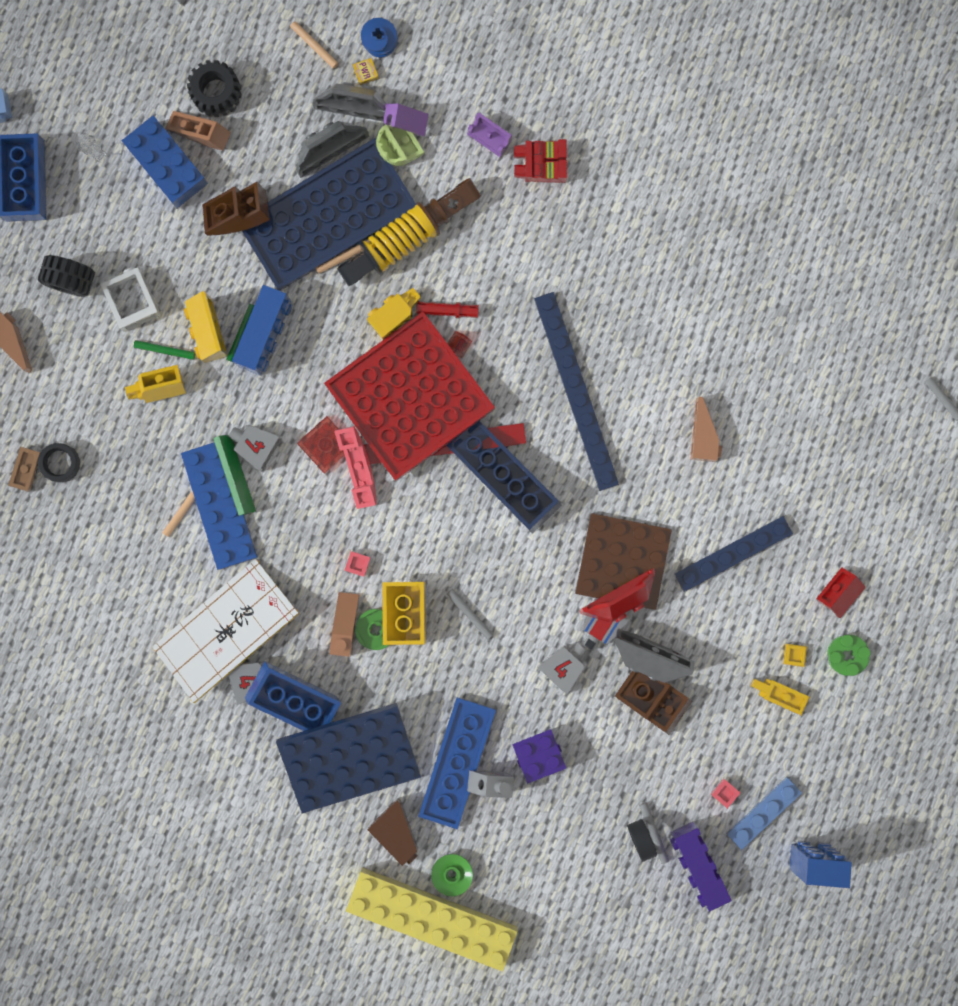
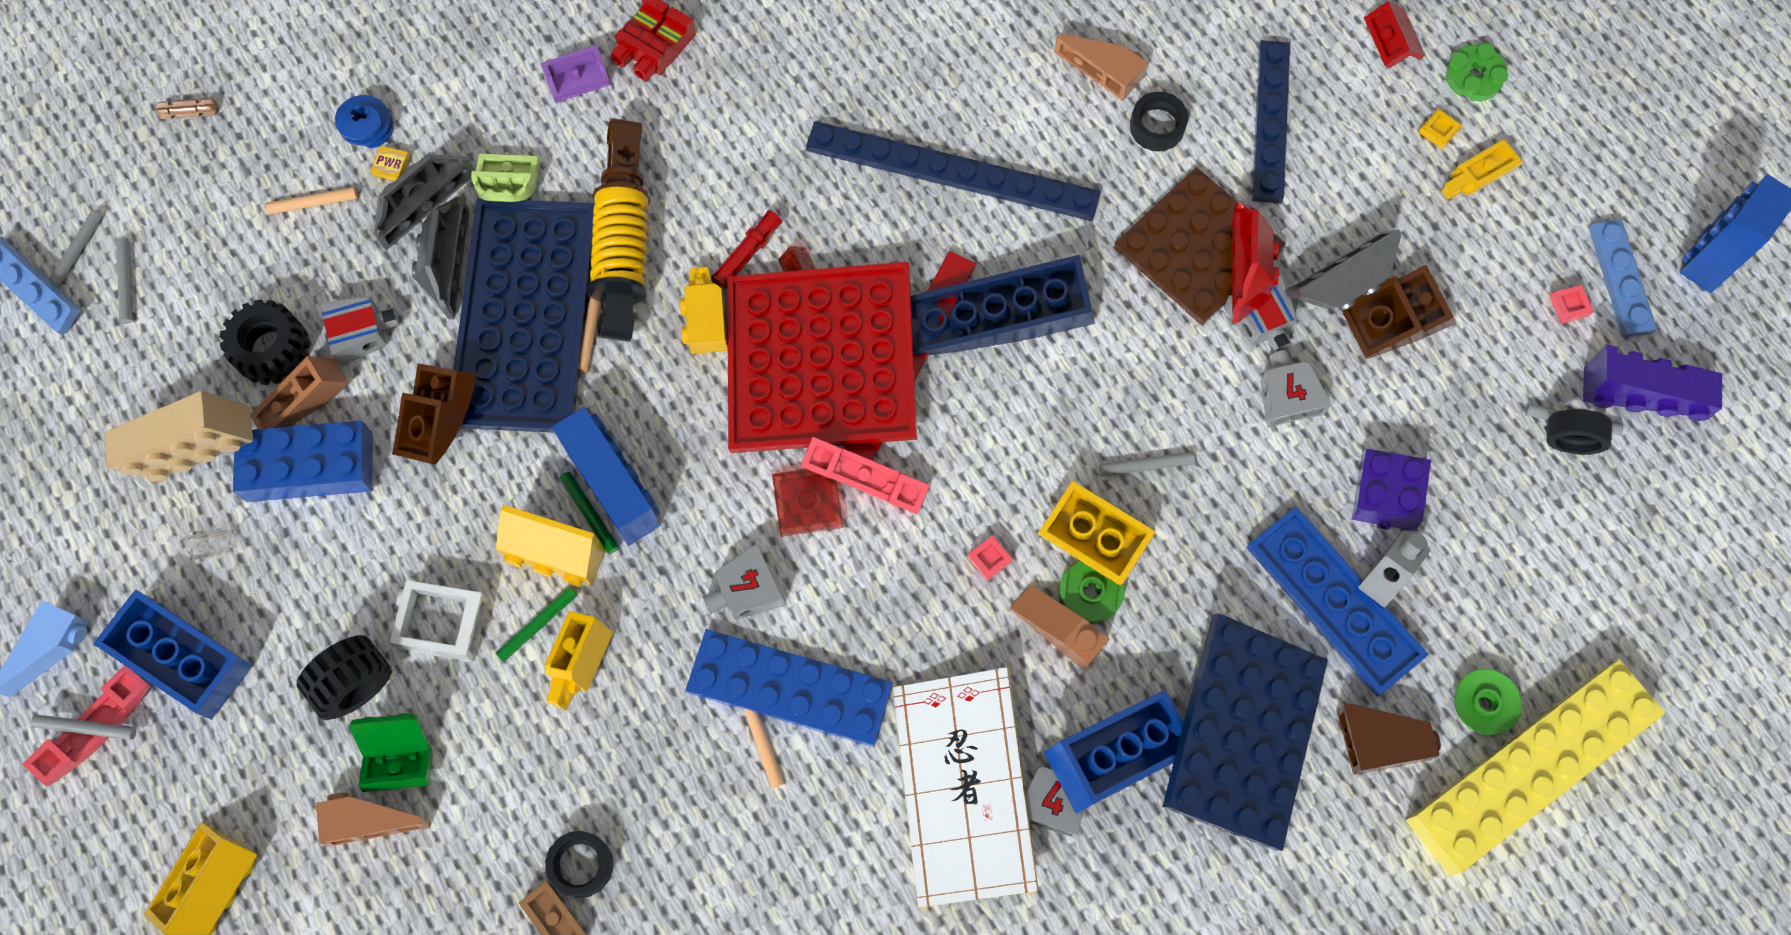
camera: 60 degrees left, 15 degrees down
(47, 329) = (393, 752): none -> green bracket
(126, 91) = (178, 436): none -> tan brick
(234, 475) = (764, 638): green tile -> none
(256, 130) = (356, 327): none -> torso
(406, 118) = (481, 142): medium lavender hinge -> none
(687, 474) = (1165, 102): none -> black tyre

